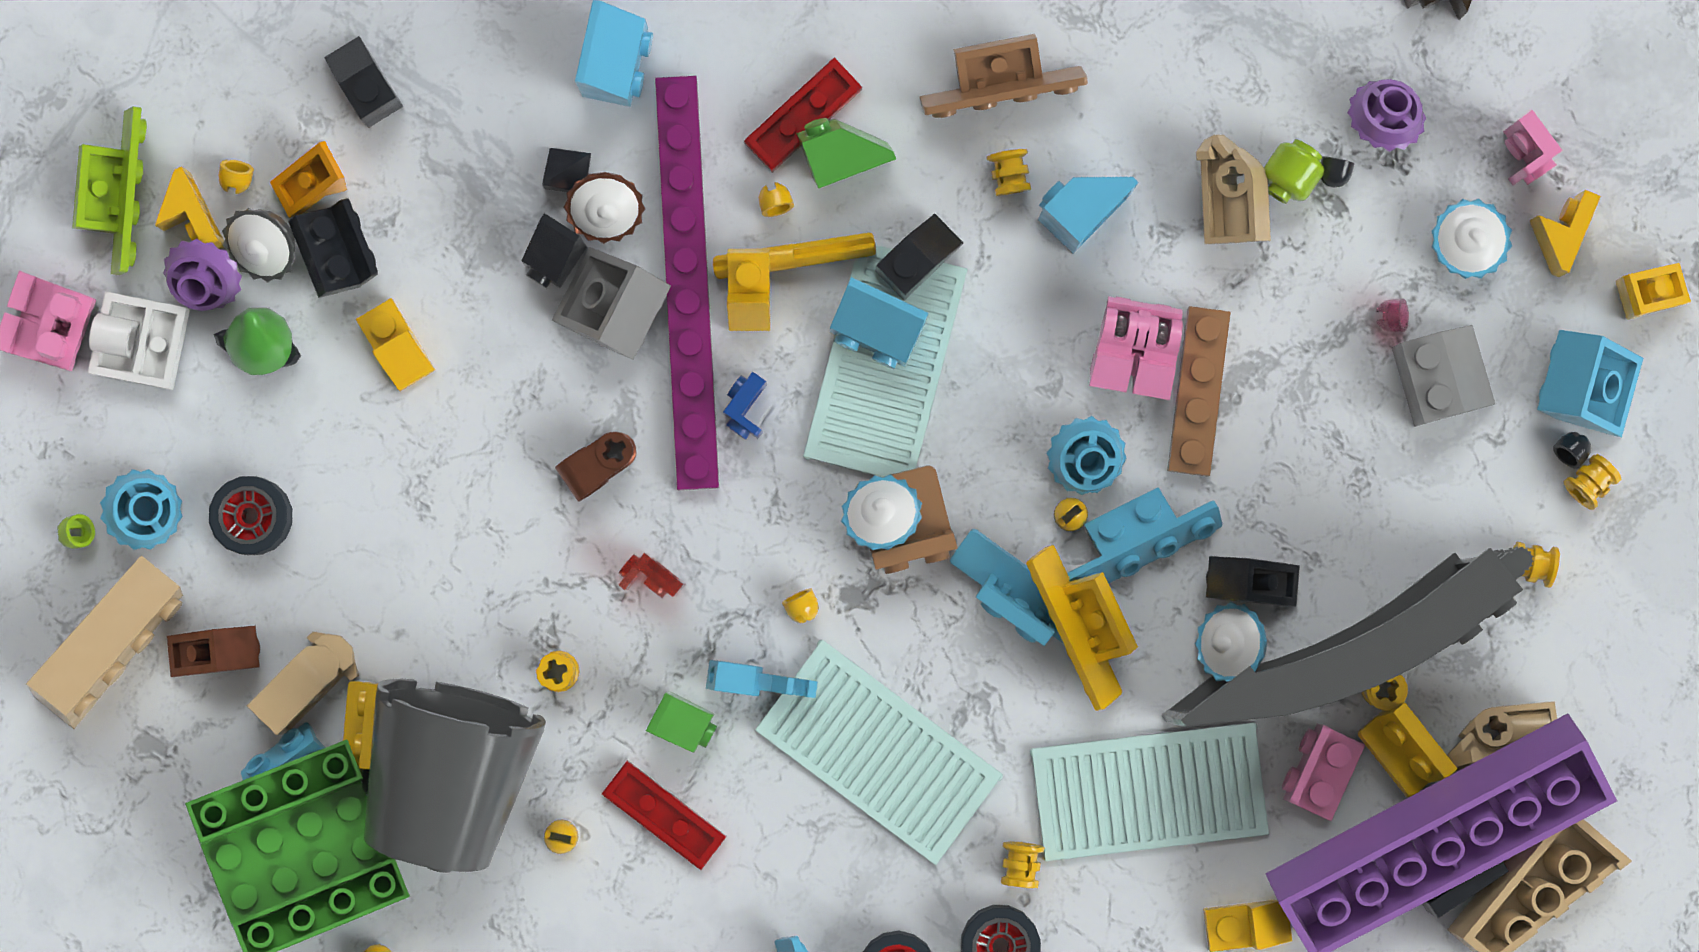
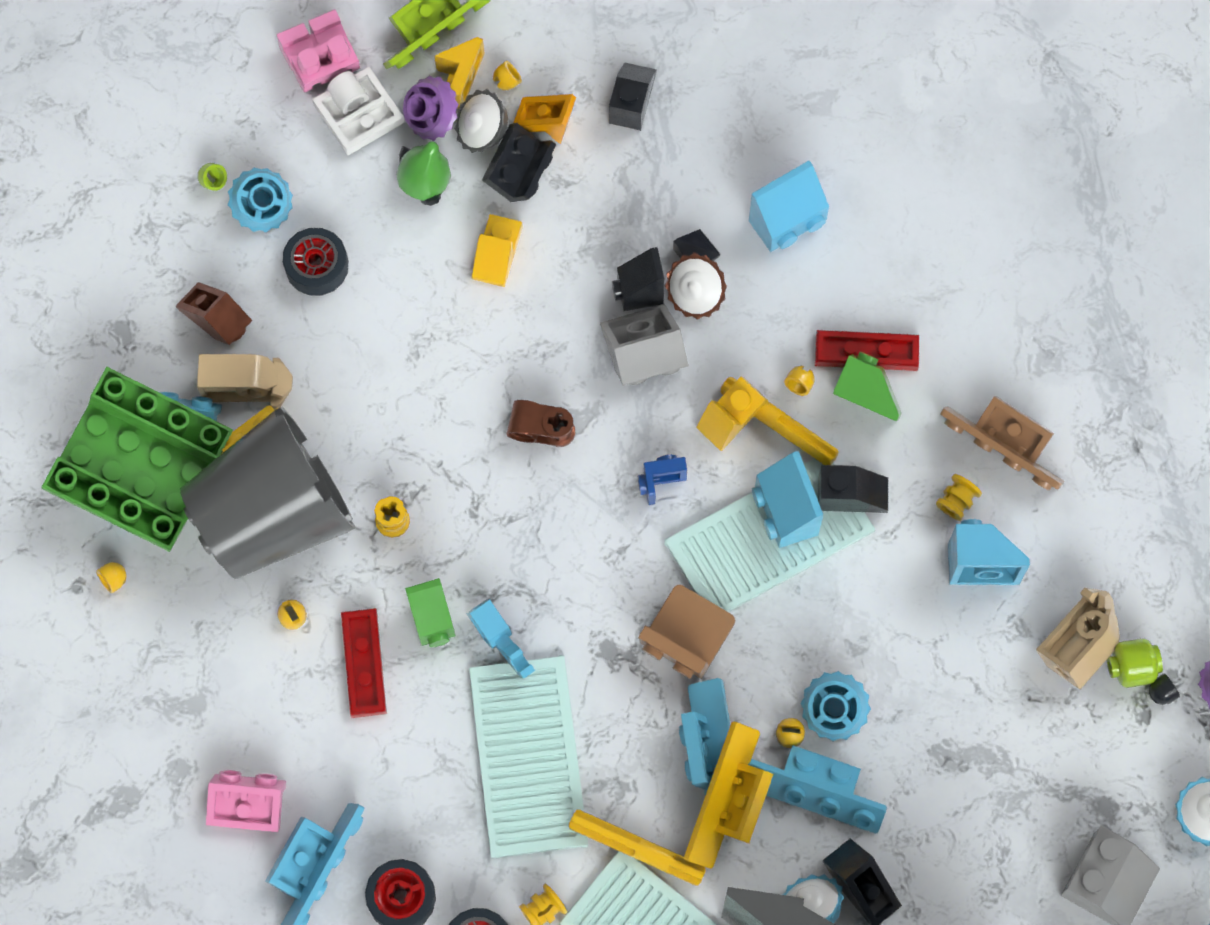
camera: 50 degrees right, 15 degrees down
(106, 642) = (160, 247): tan wedge -> none
(658, 579) = (506, 522): clear red bracket -> none
(688, 276) = (698, 379): magenta plate -> none
(802, 606) = (572, 624): yellow hinge -> none
(881, 512) = (676, 609): white piece -> none
(1043, 738) = (636, 847): none -> yellow axle
(1137, 342) = (934, 667): bright pink hips -> none
(1198, 391) = (944, 738): medium nougat plate -> none
(1394, 315) = (1115, 812): clear pink hinge -> none

